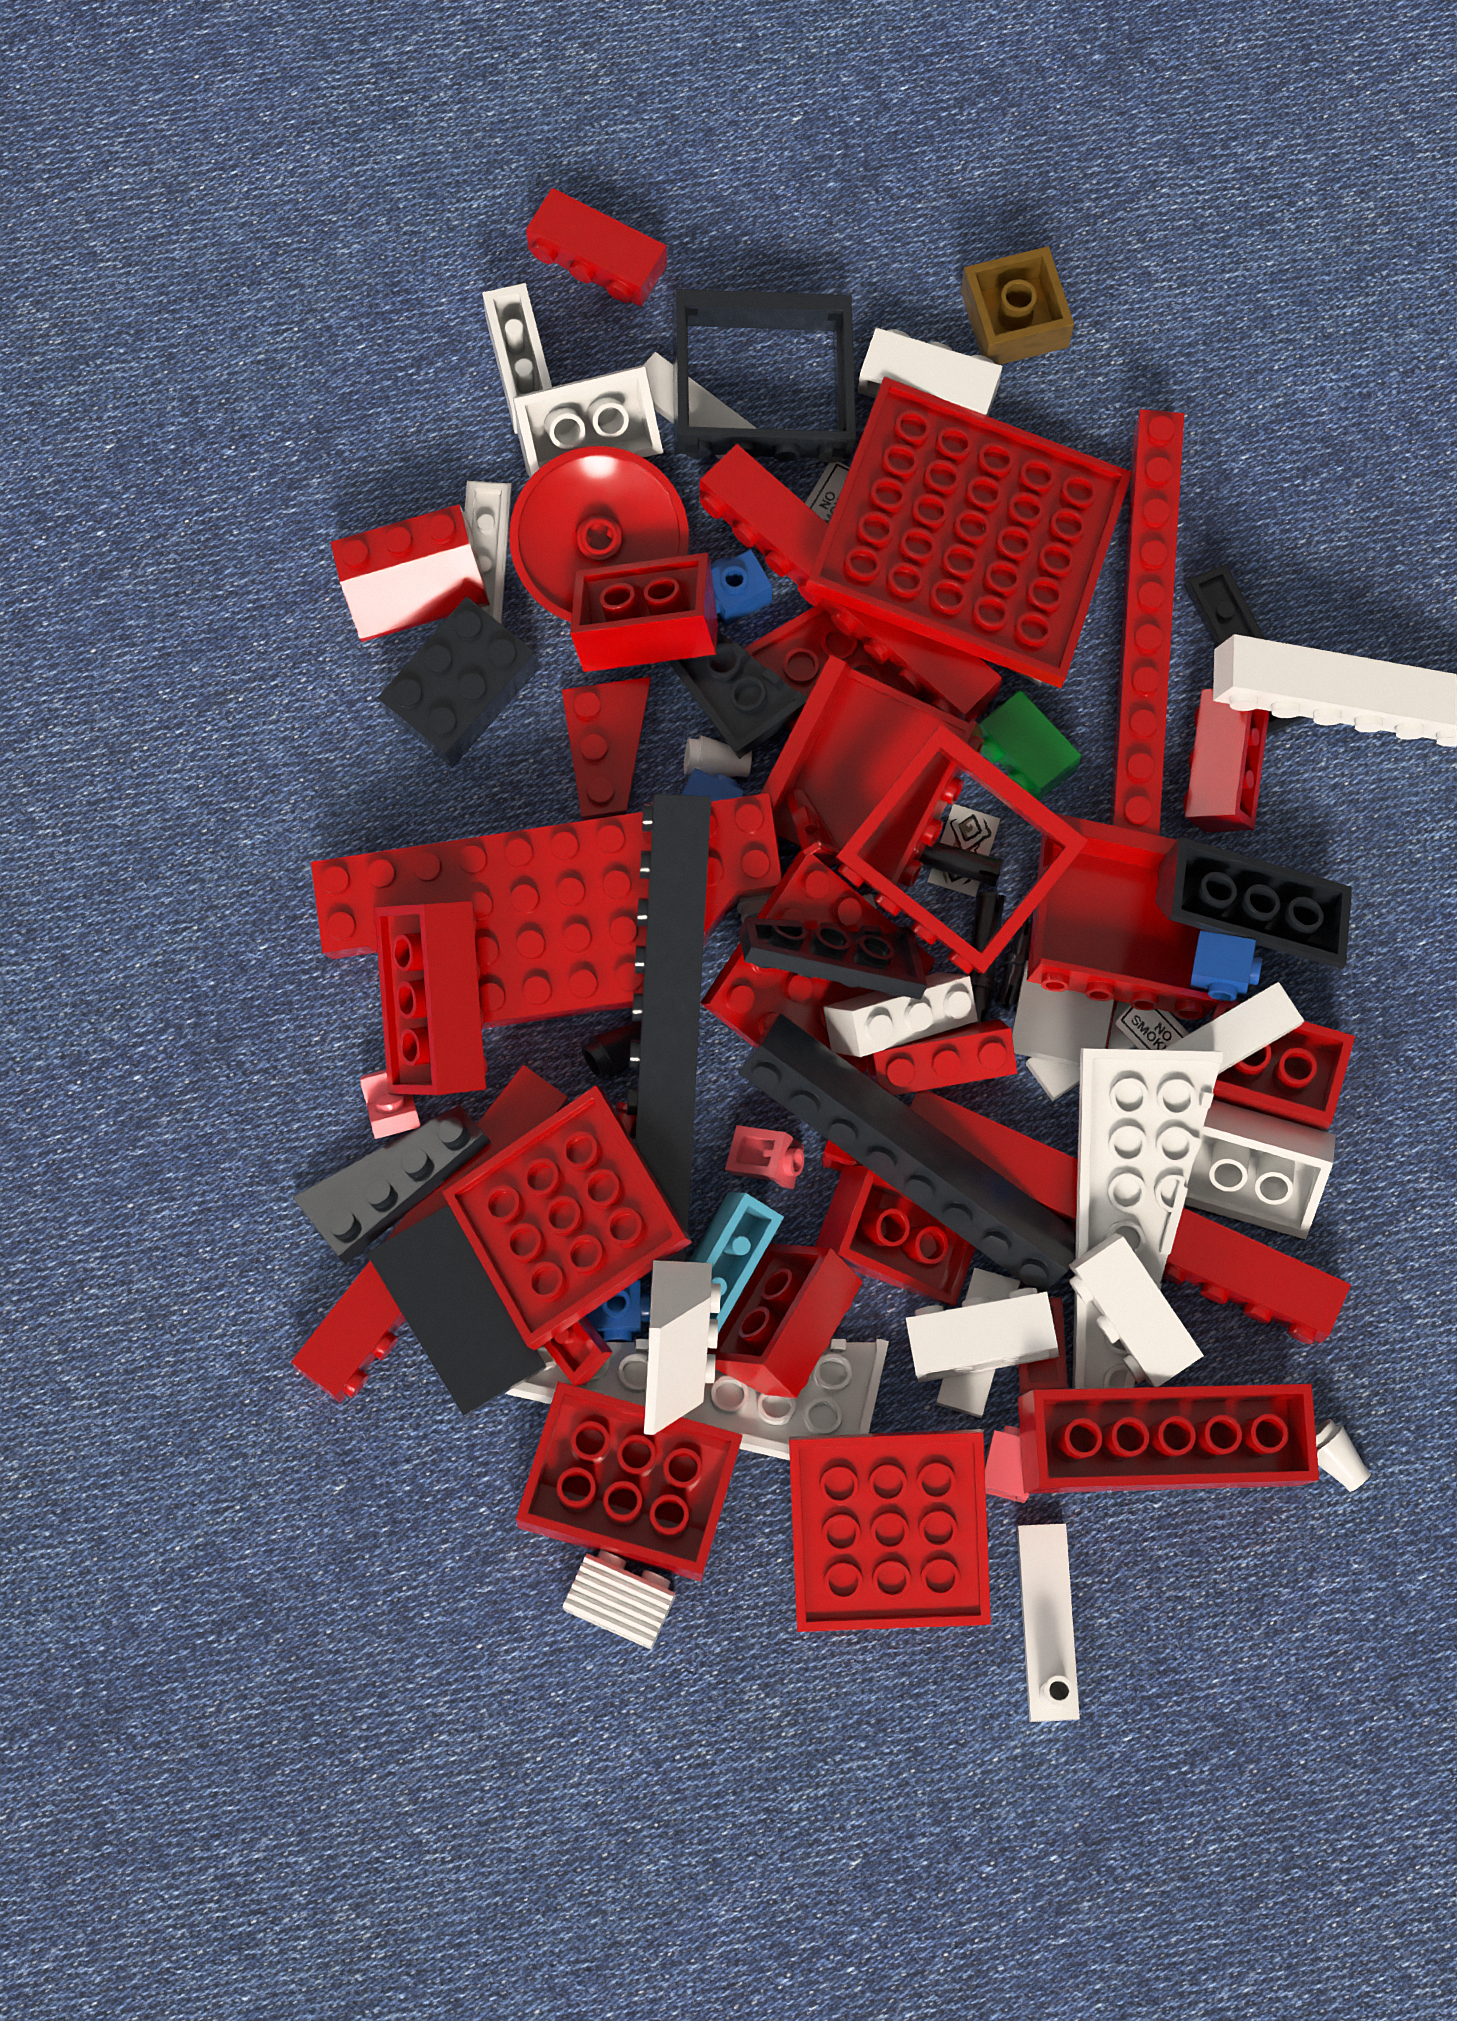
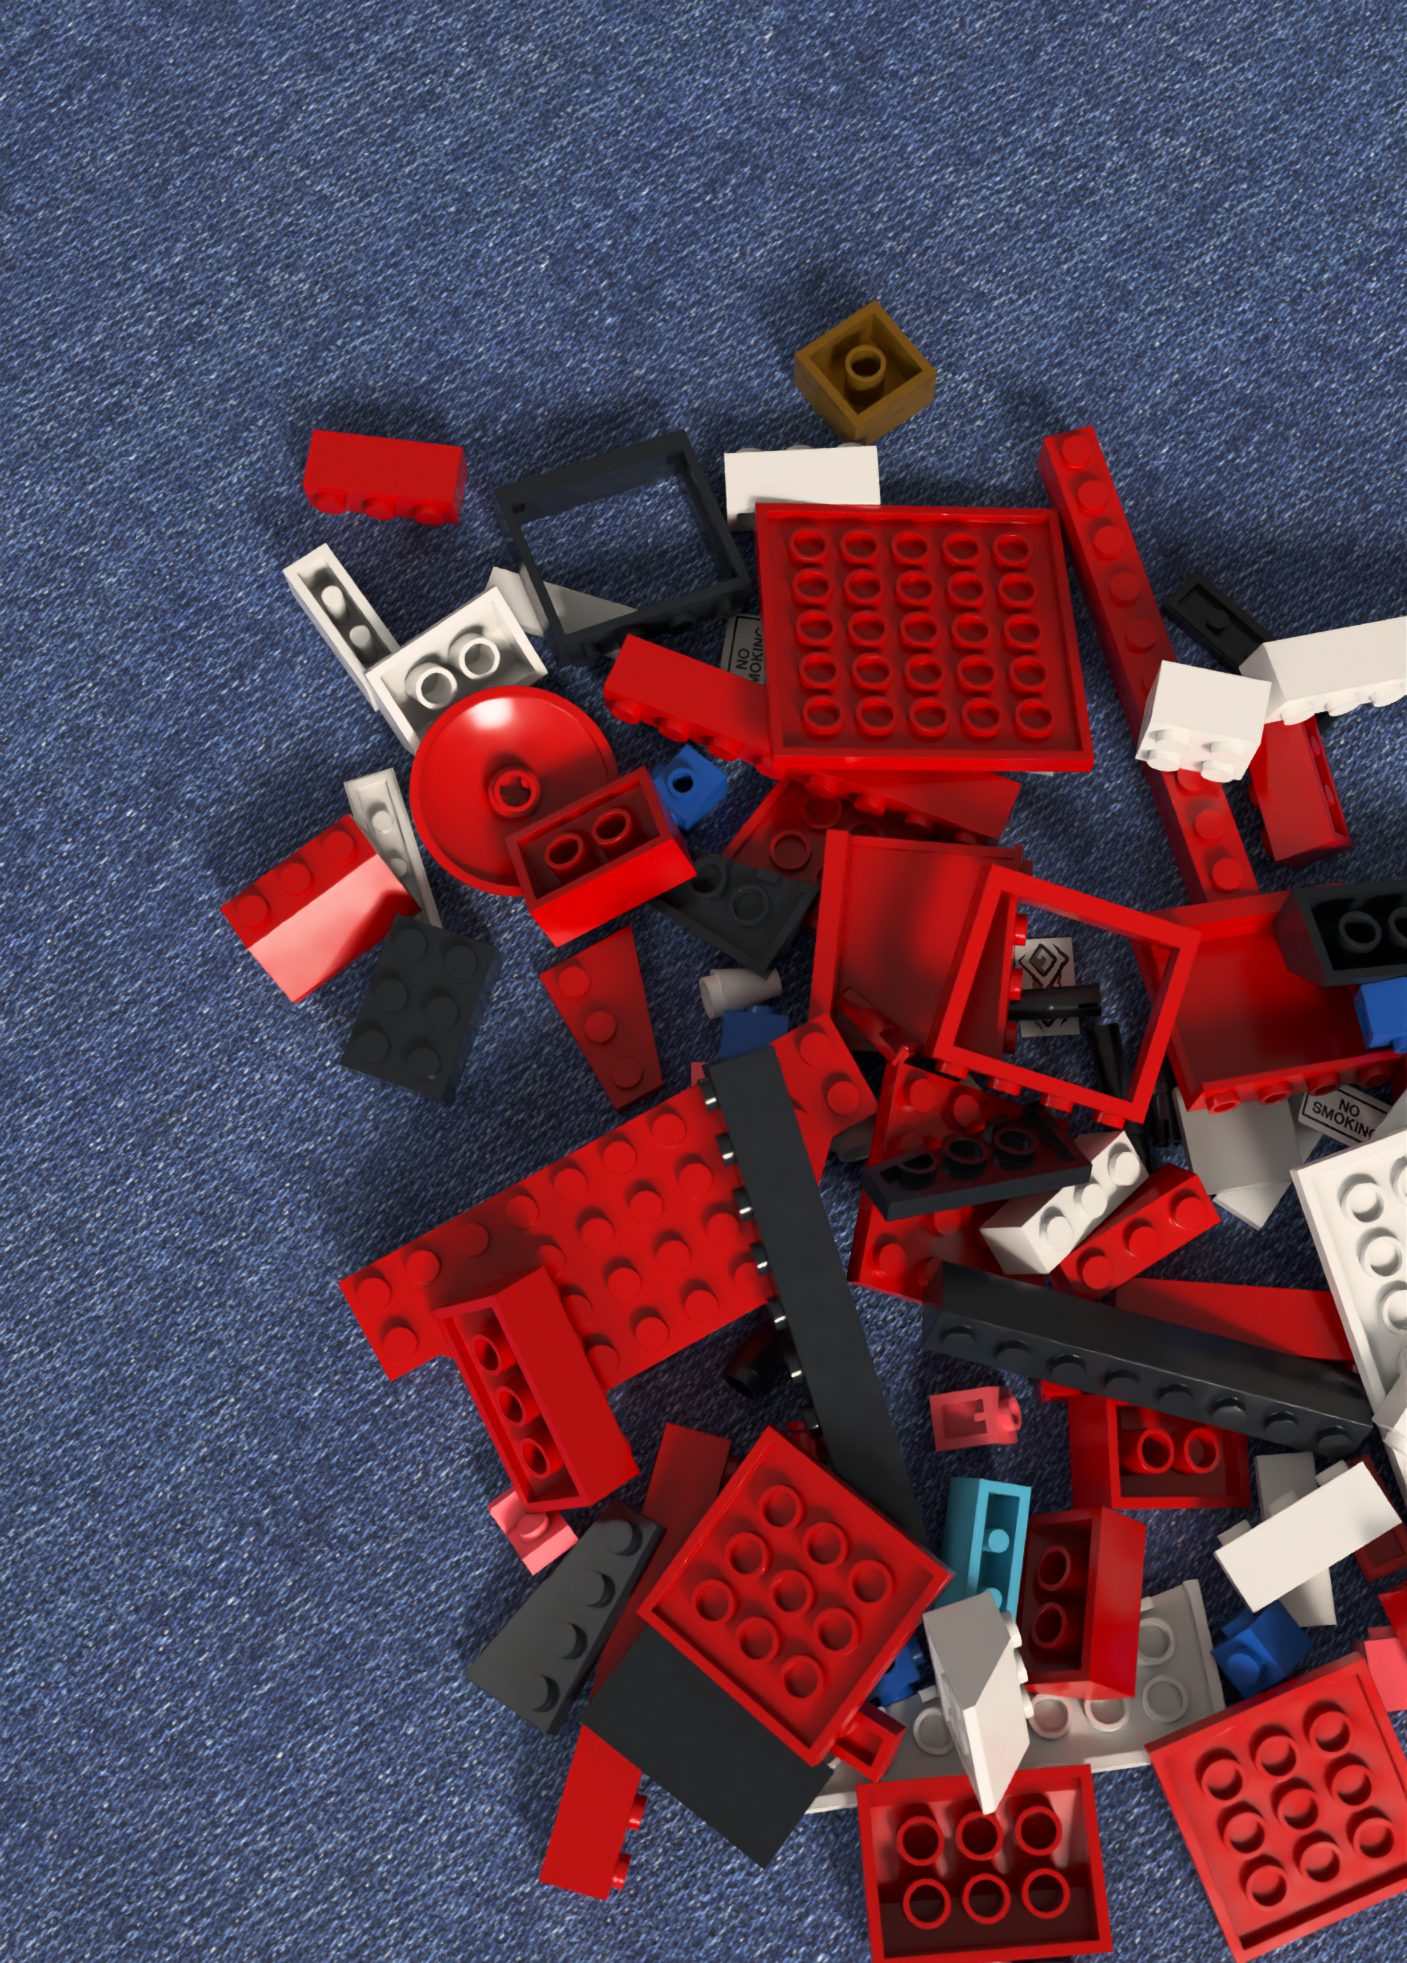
camera: 15 degrees left, 0 degrees up
(913, 1404) = (1260, 1648): none -> blue brick
(1028, 746) = (1073, 846): green brick -> none
(1160, 679) = (1202, 721): none -> white brick

